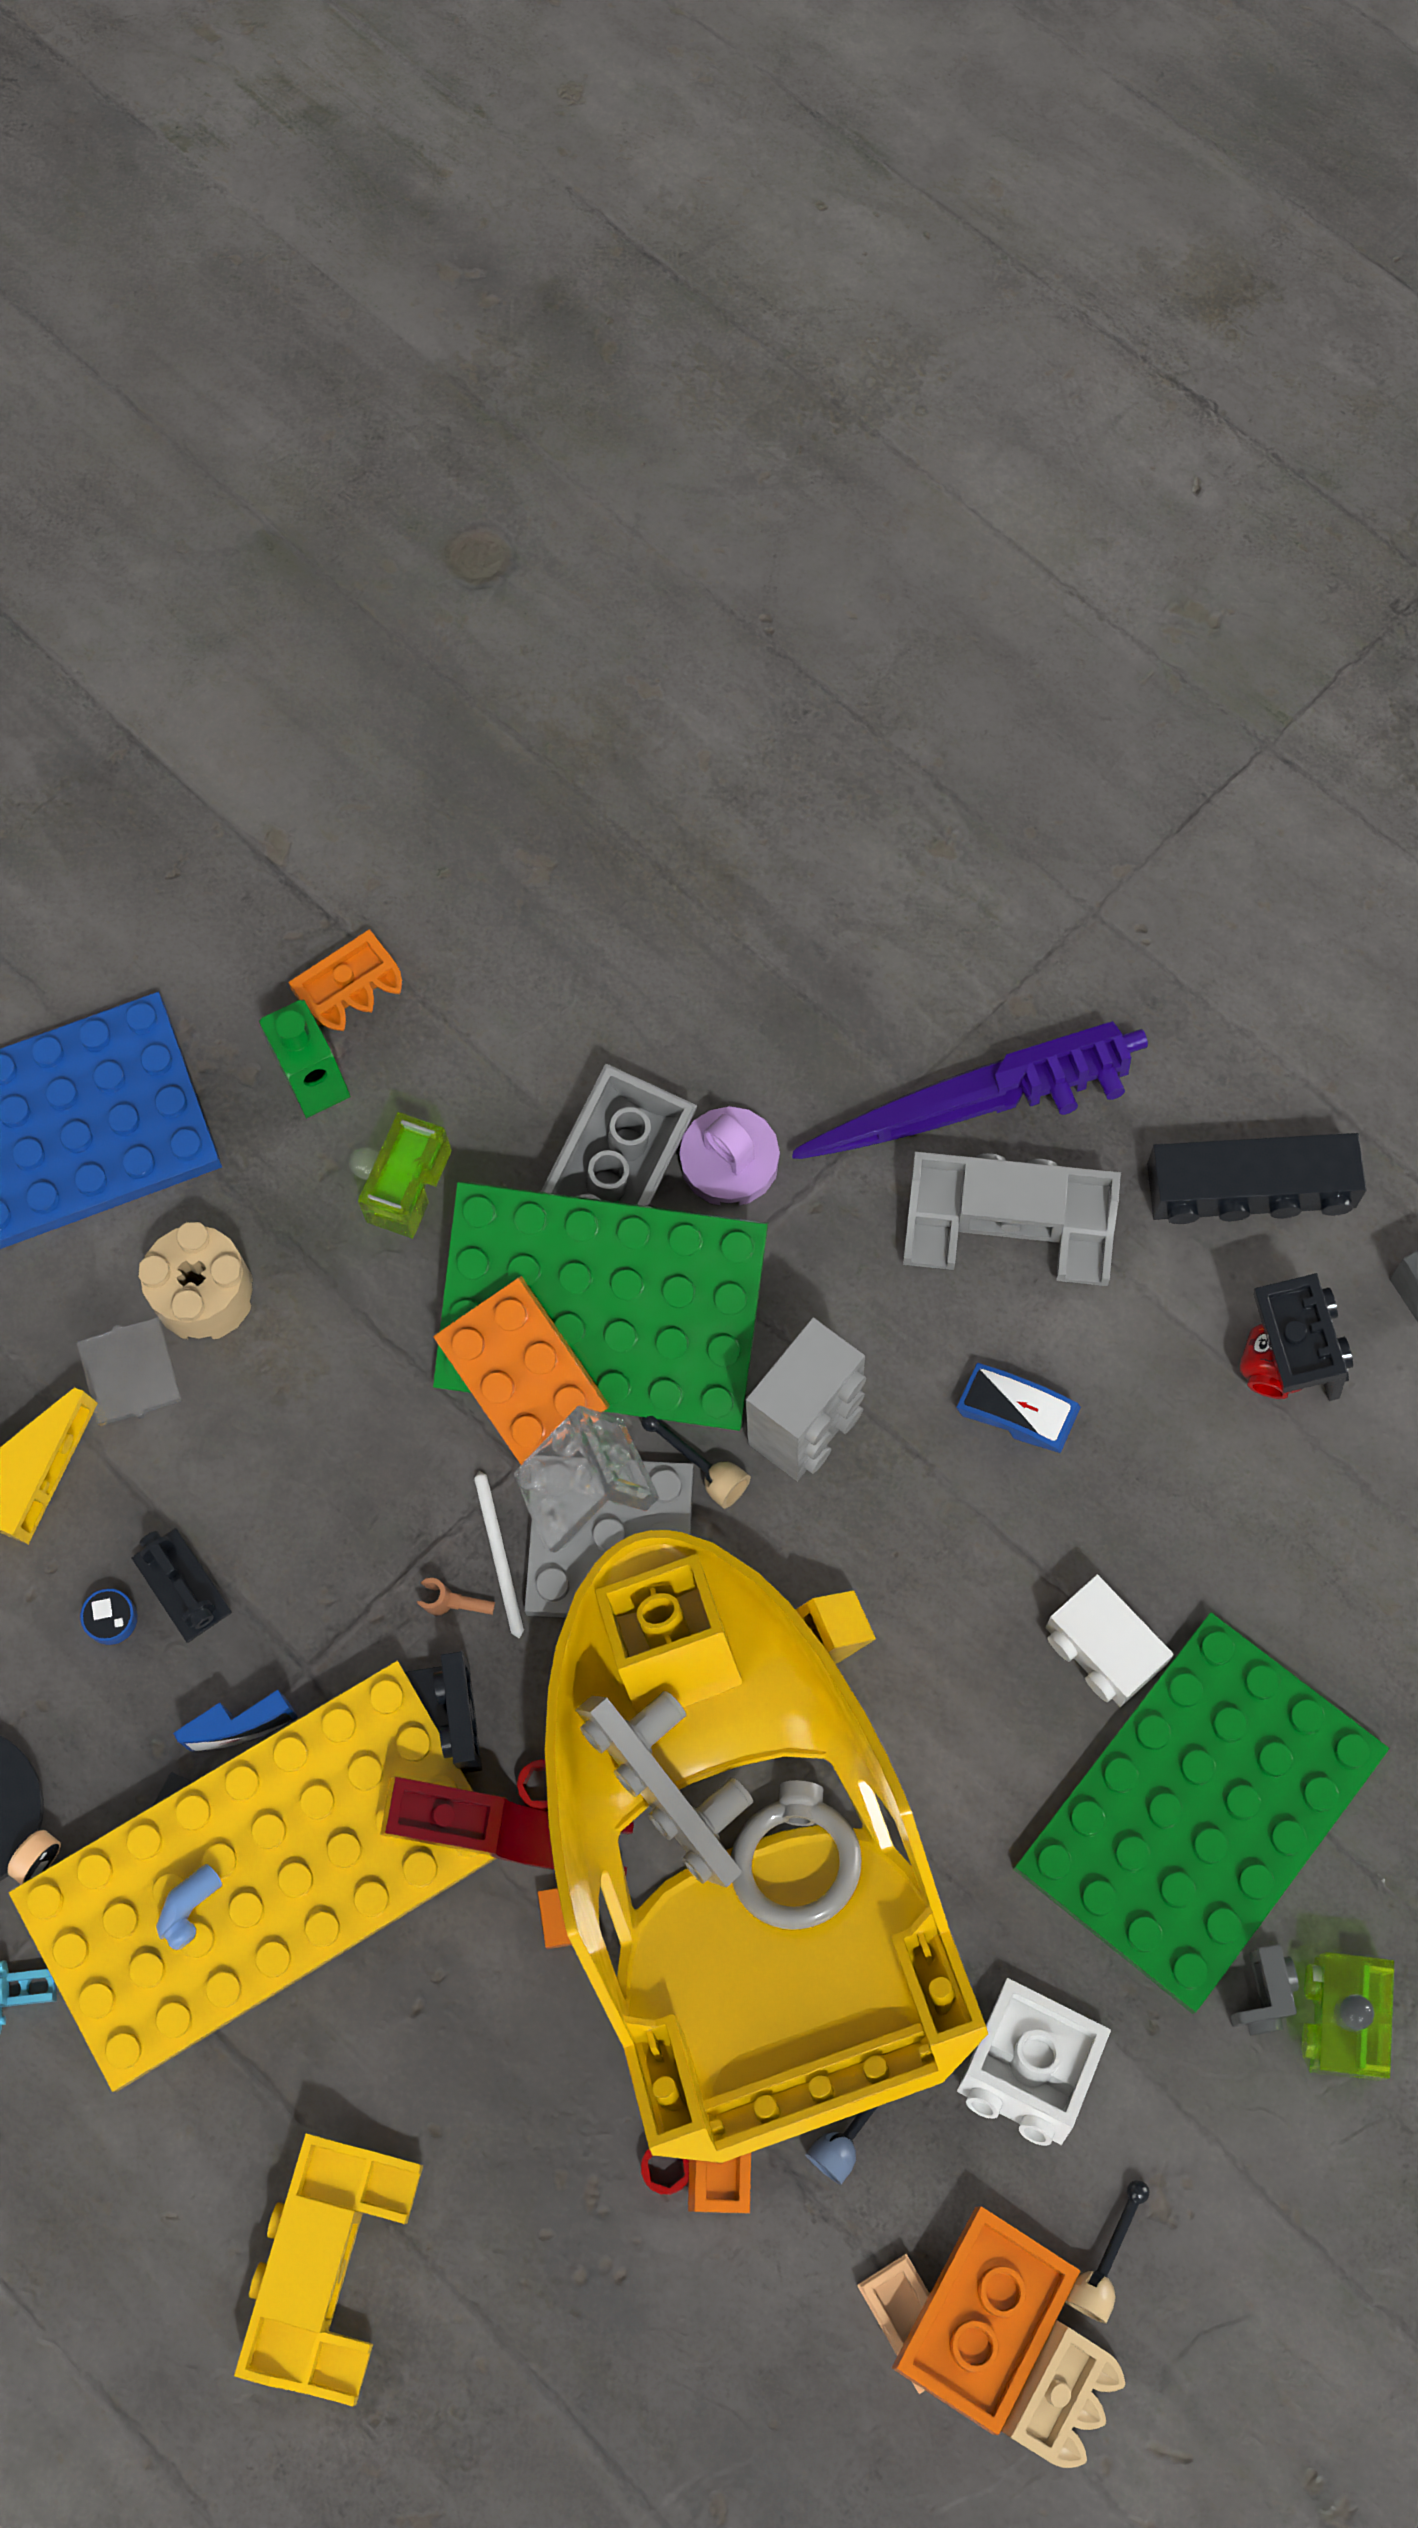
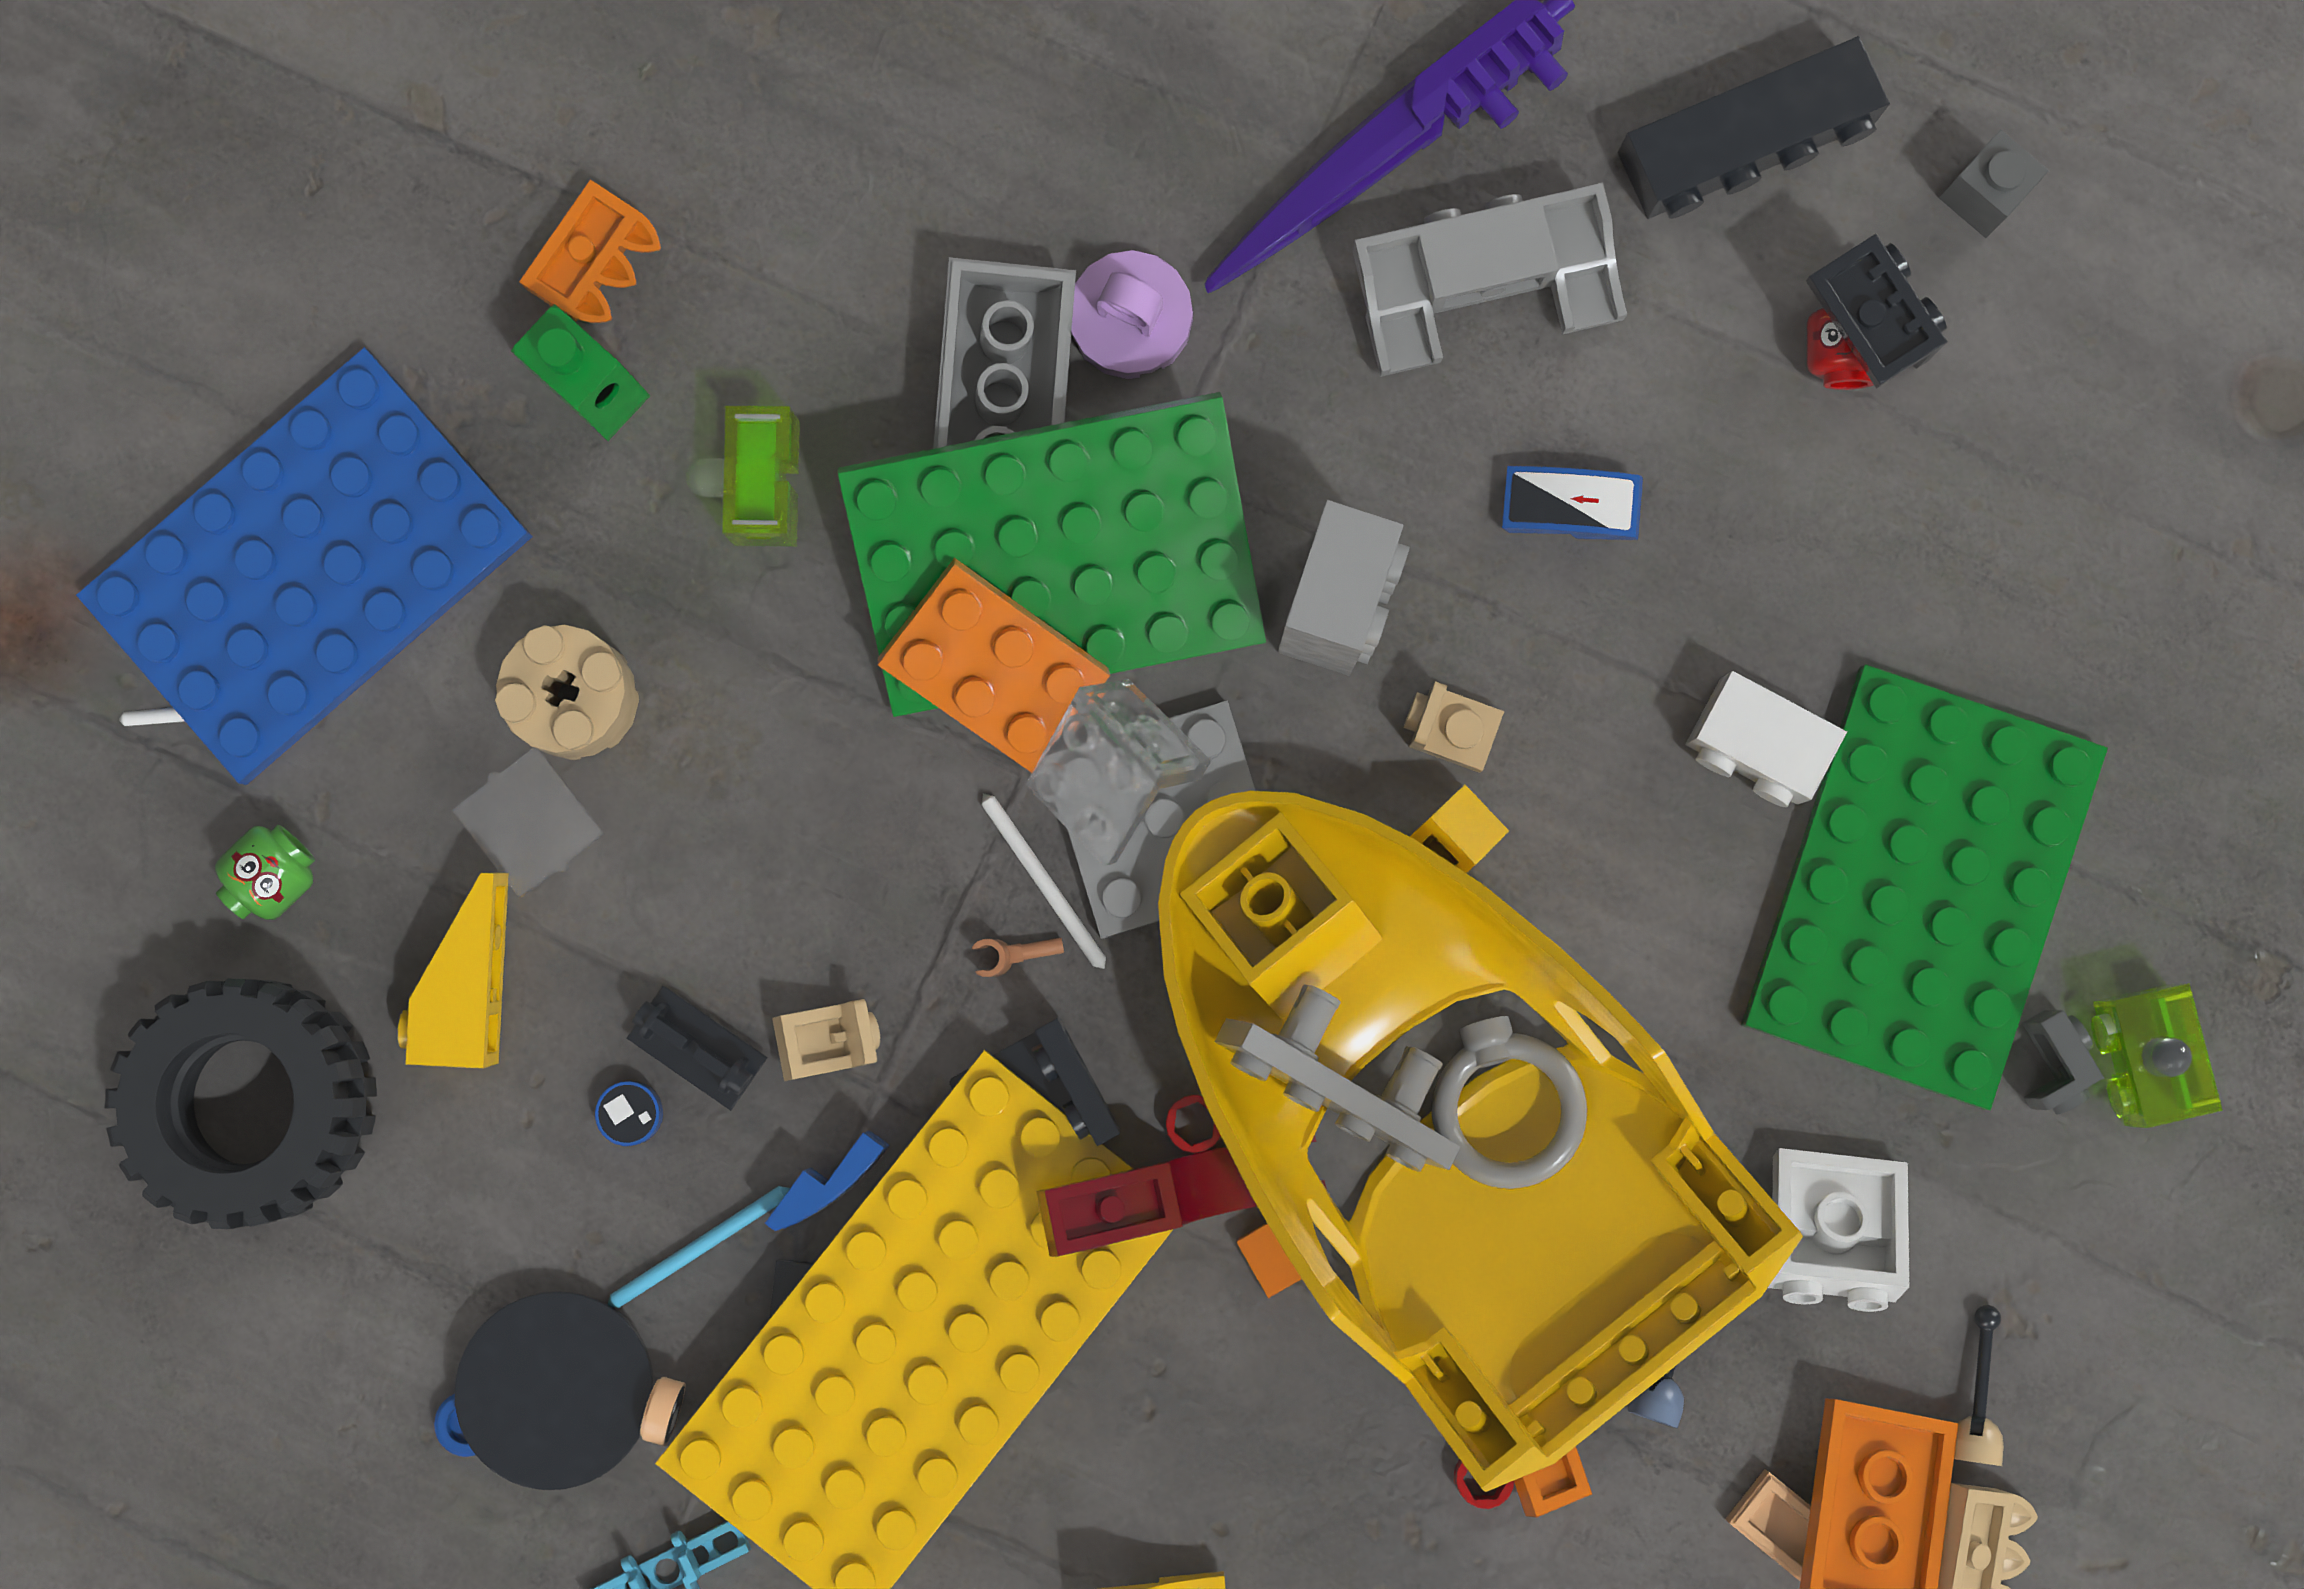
camera: 20 degrees left, 15 degrees up
(107, 1743) = (697, 1247): none -> medium azure axle
(180, 1901) = (857, 1405): medium blue arm -> none
(281, 1612) = (826, 1039): none -> tan bracket
(722, 1481) = (1267, 707): hinge -> none
(862, 1546) = (1453, 727): none -> tan bracket

